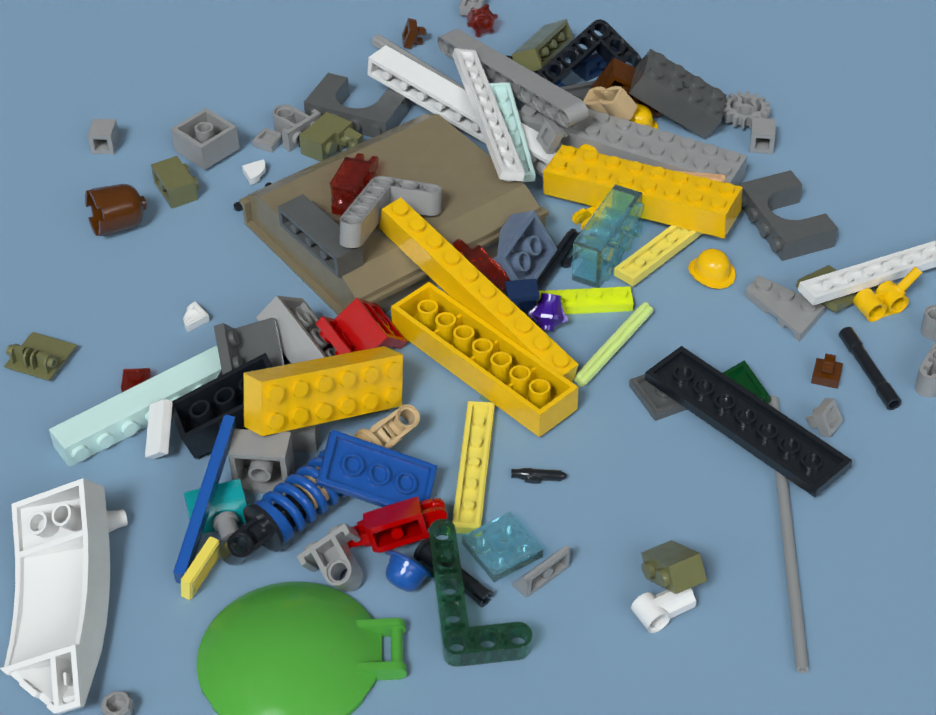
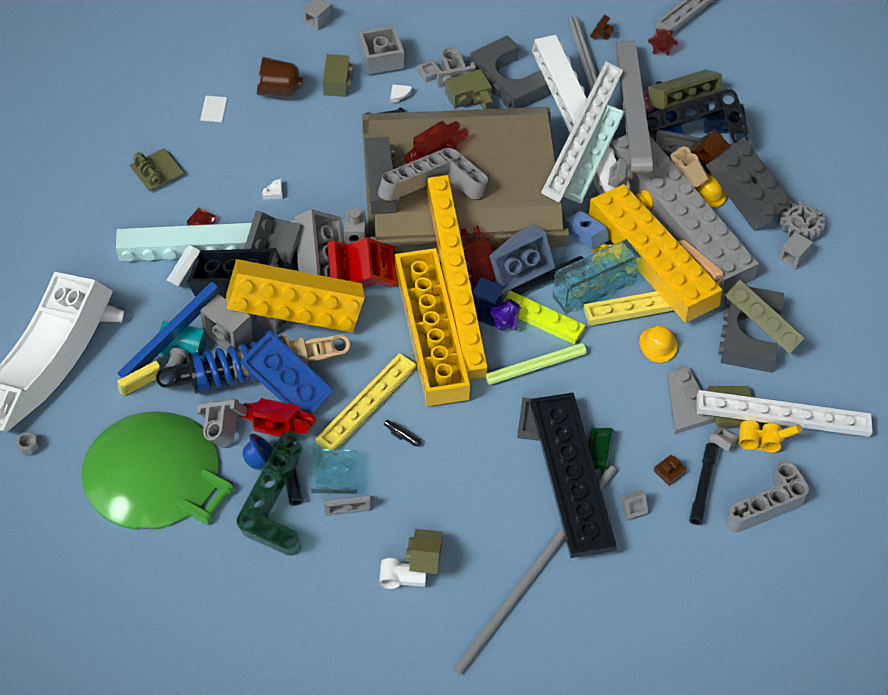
camera: 30 degrees right, 10 degrees up
(57, 272) = (213, 108): none -> white sticker
(322, 299) = (354, 224): none -> light grey torso
(564, 201) = (592, 234): none -> medium blue piece
(795, 193) = (764, 316): none -> olive brick
(850, 319) = (724, 438): none -> light grey tile

